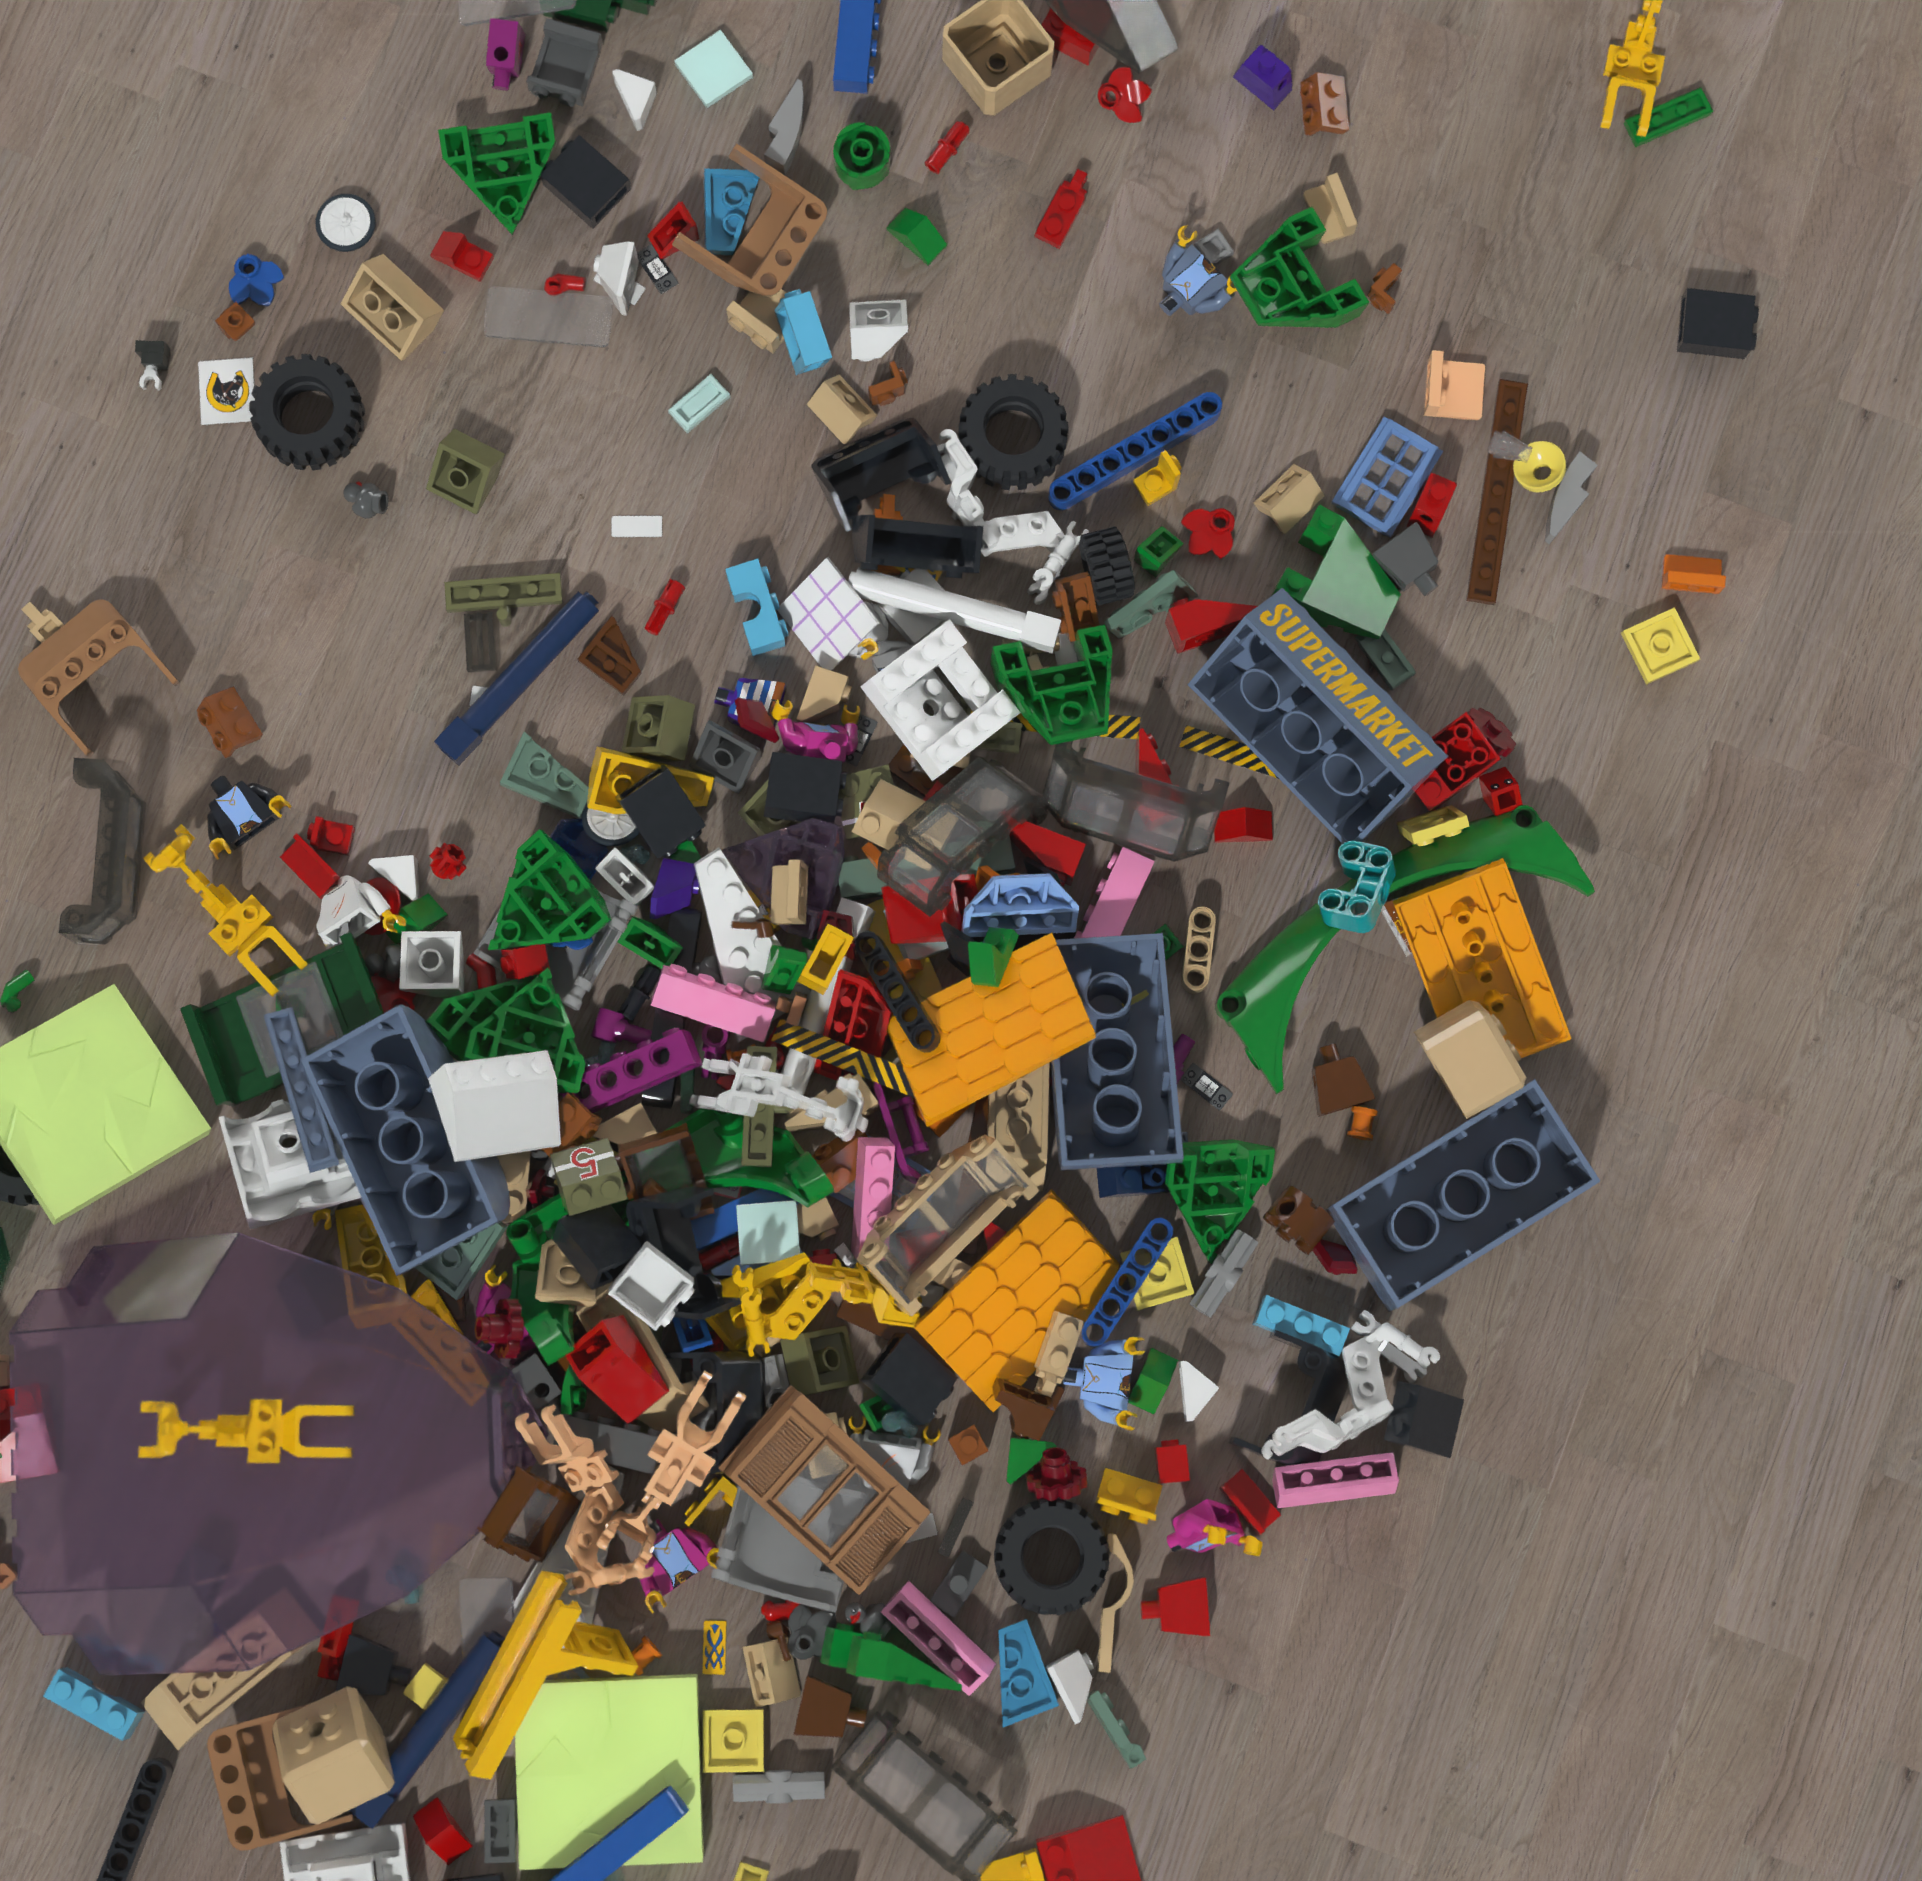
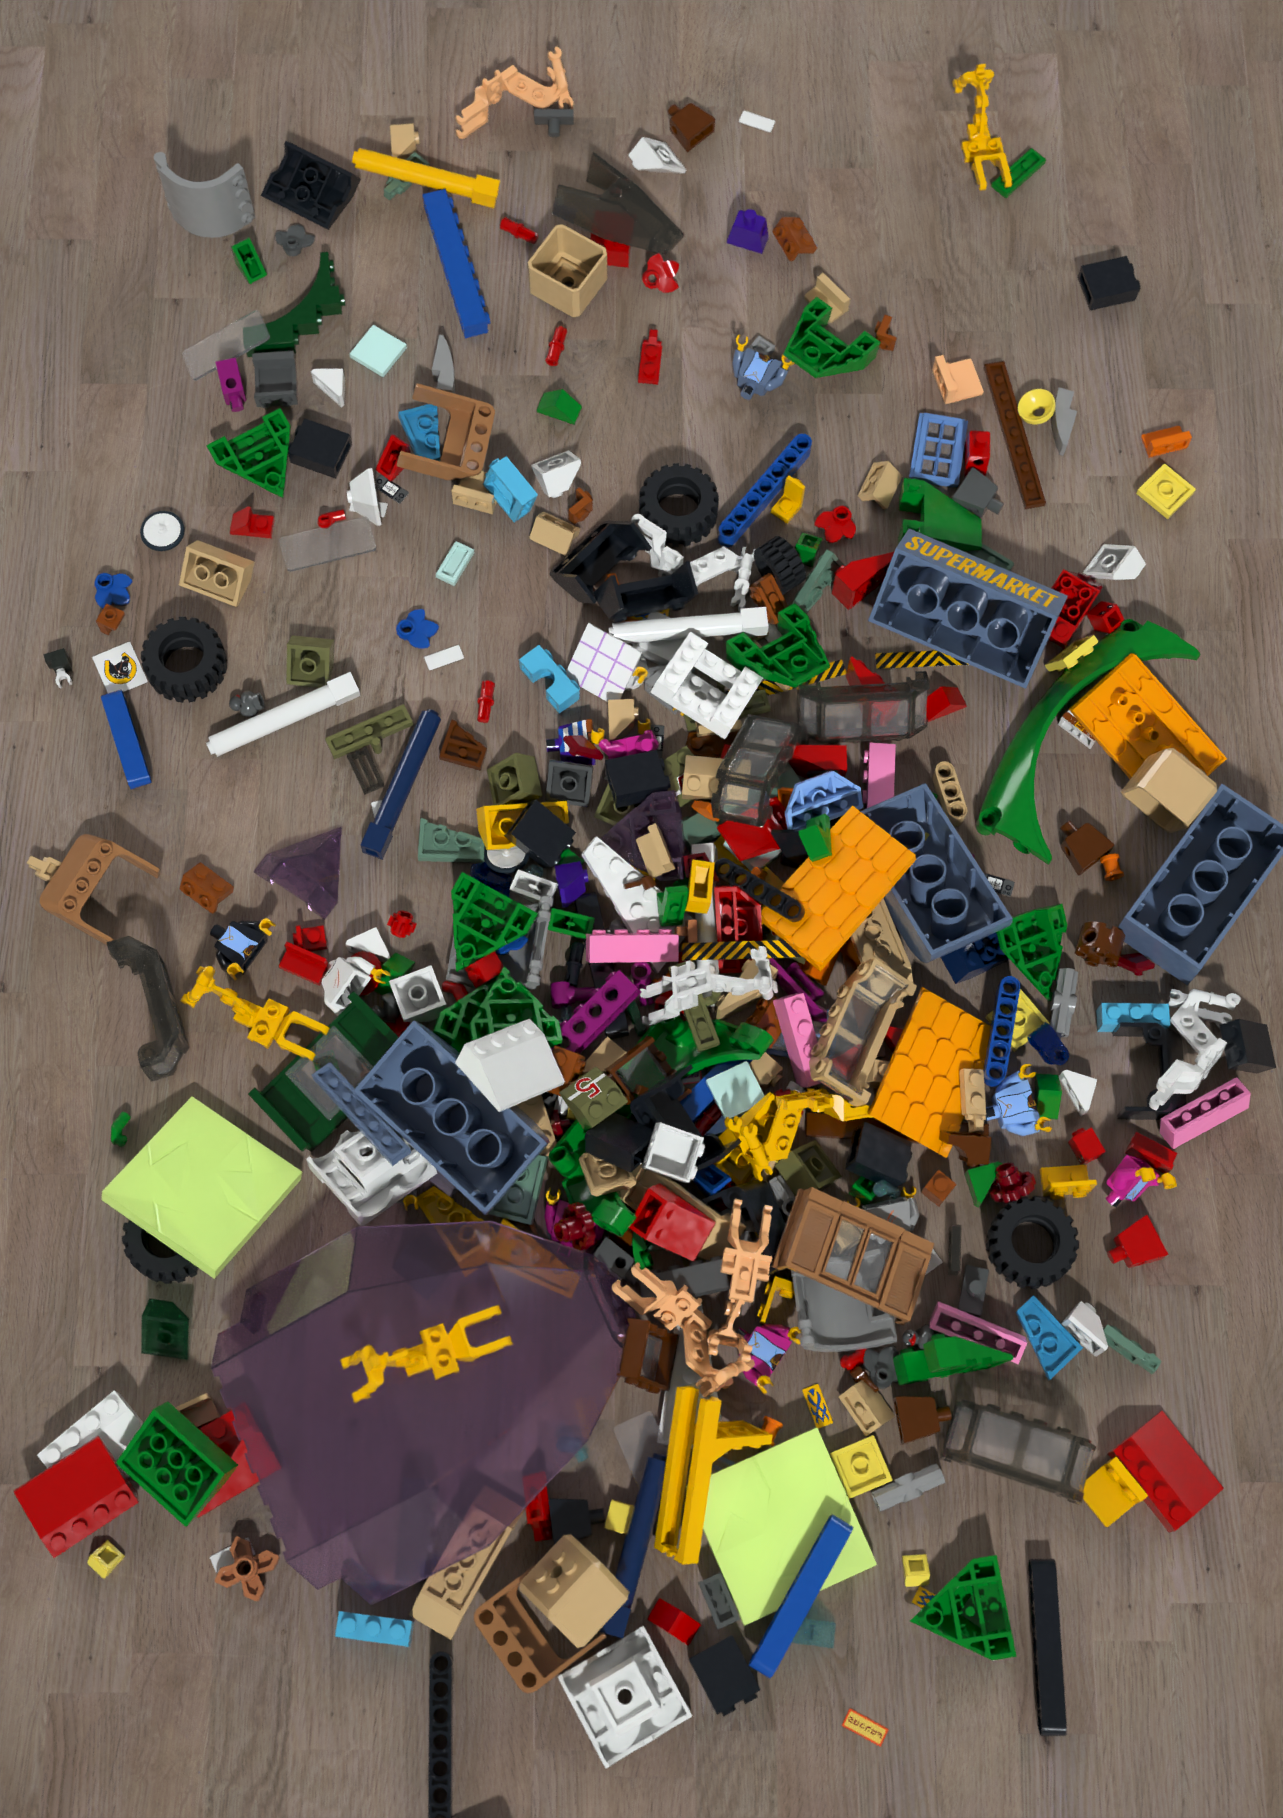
camera: 20 degrees left, 10 degrees down
(199, 490) = (126, 739): none -> blue beam
(360, 747) = (307, 870): none -> clear purple wedge
(404, 532) = (334, 693): none -> white brick
(620, 479) = (420, 629): none -> blue plate
(872, 145) = (502, 368): green brick -> none
(1108, 1612) = (1089, 1270): tan piece -> none
(1177, 1318) = (1045, 1042): none -> clear blue piece
(1370, 890) = (1051, 717): teal beam -> none
(1508, 447) = (1010, 401): clear cone -> none
(1546, 723) = (1116, 563): none -> white slope

